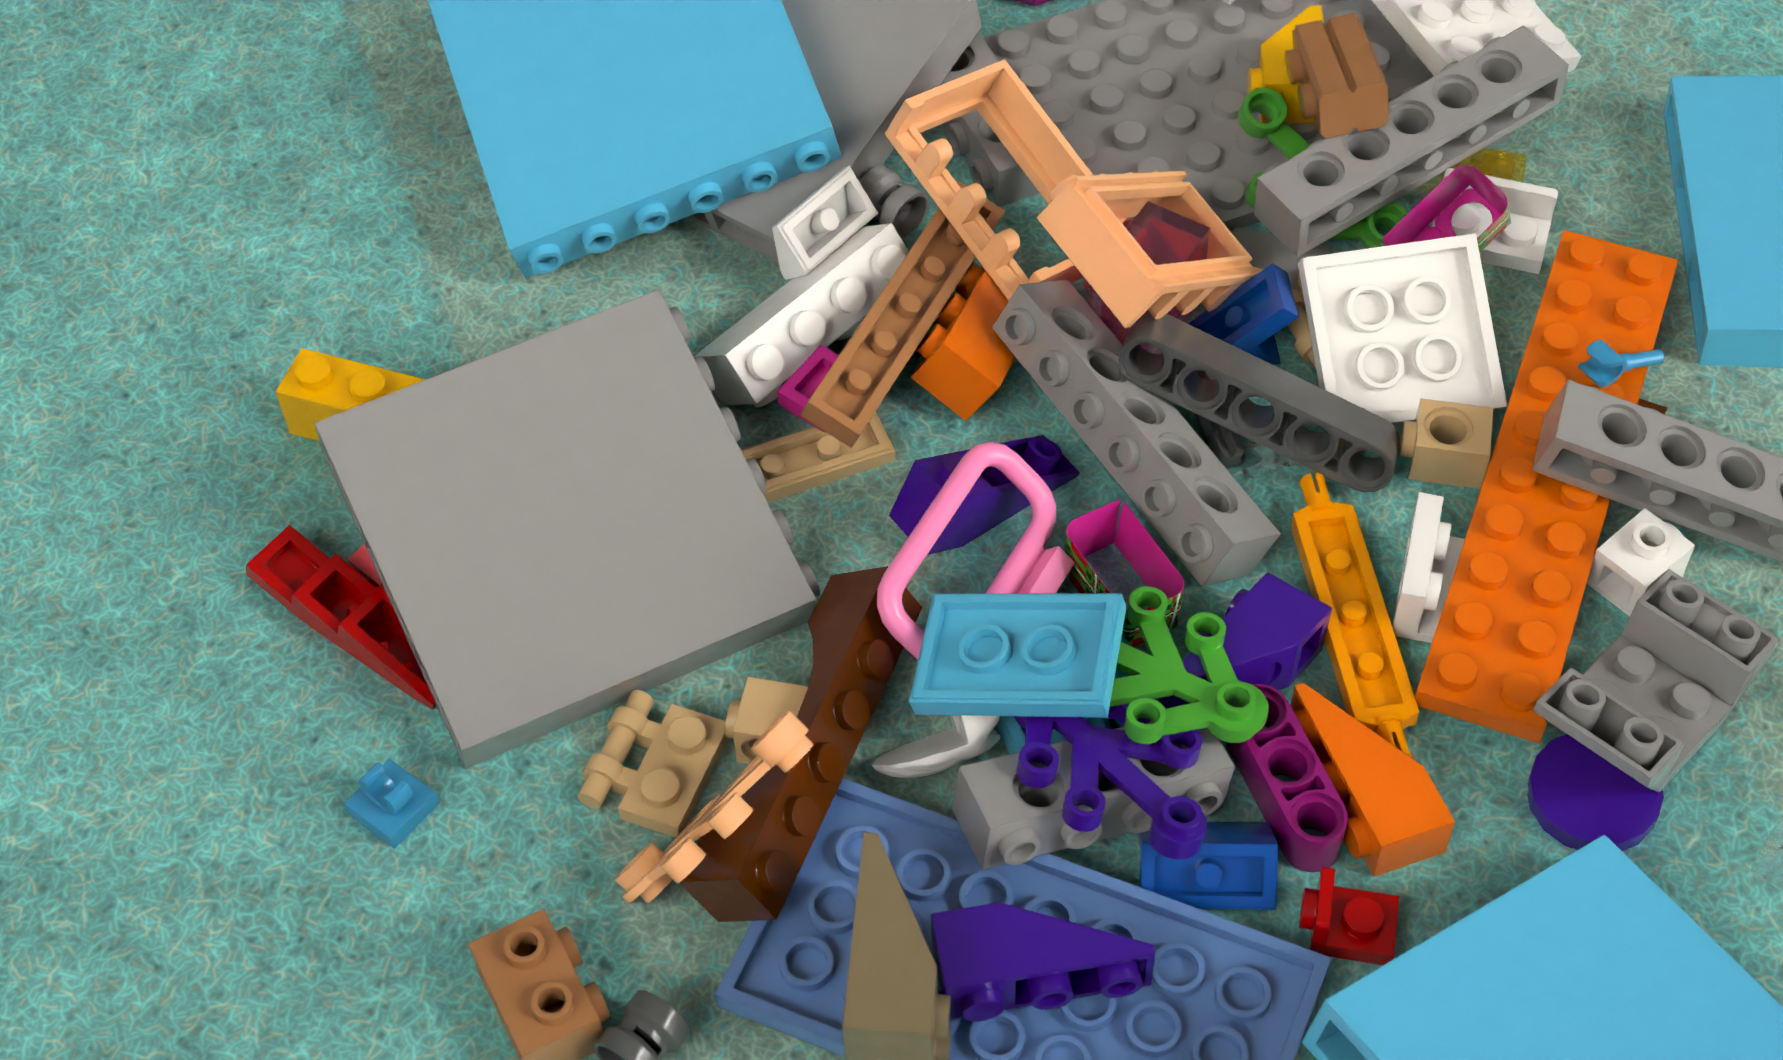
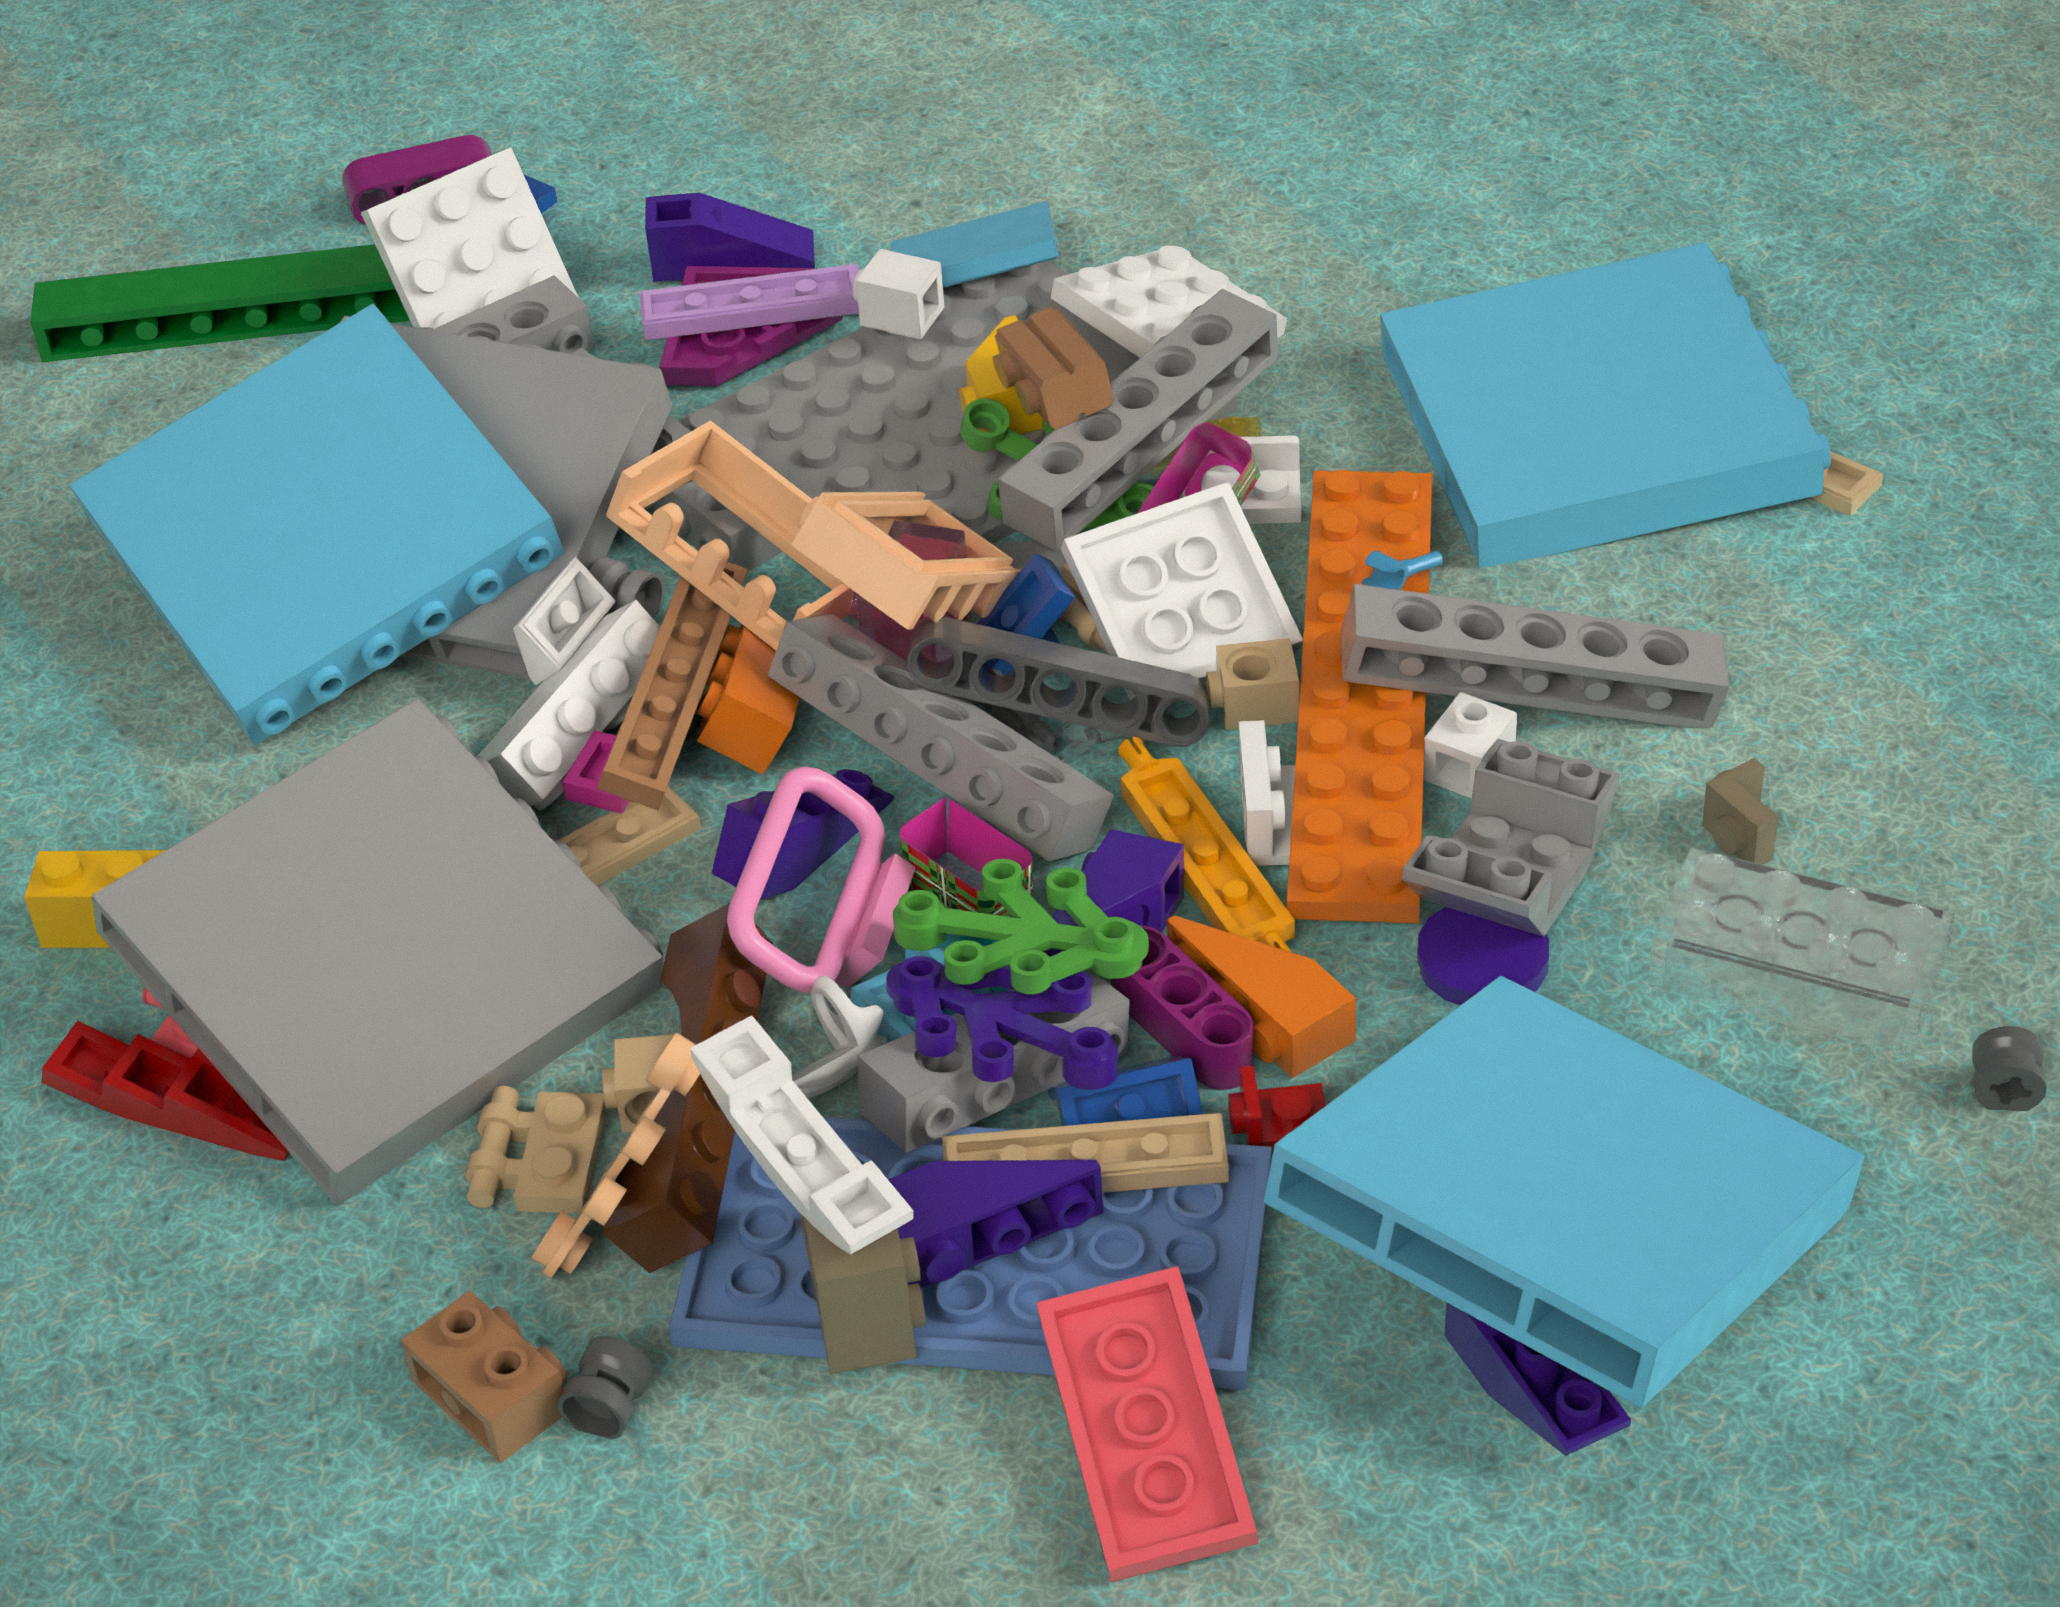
camera: 15 degrees left, 10 degrees down
(391, 802) = (269, 1251): dark azure tile -> none
(864, 875) = (794, 1142): none -> white slope
(1019, 655) = (887, 942): medium azure tile -> none
(1182, 927) = (1129, 1152): none -> tan tile

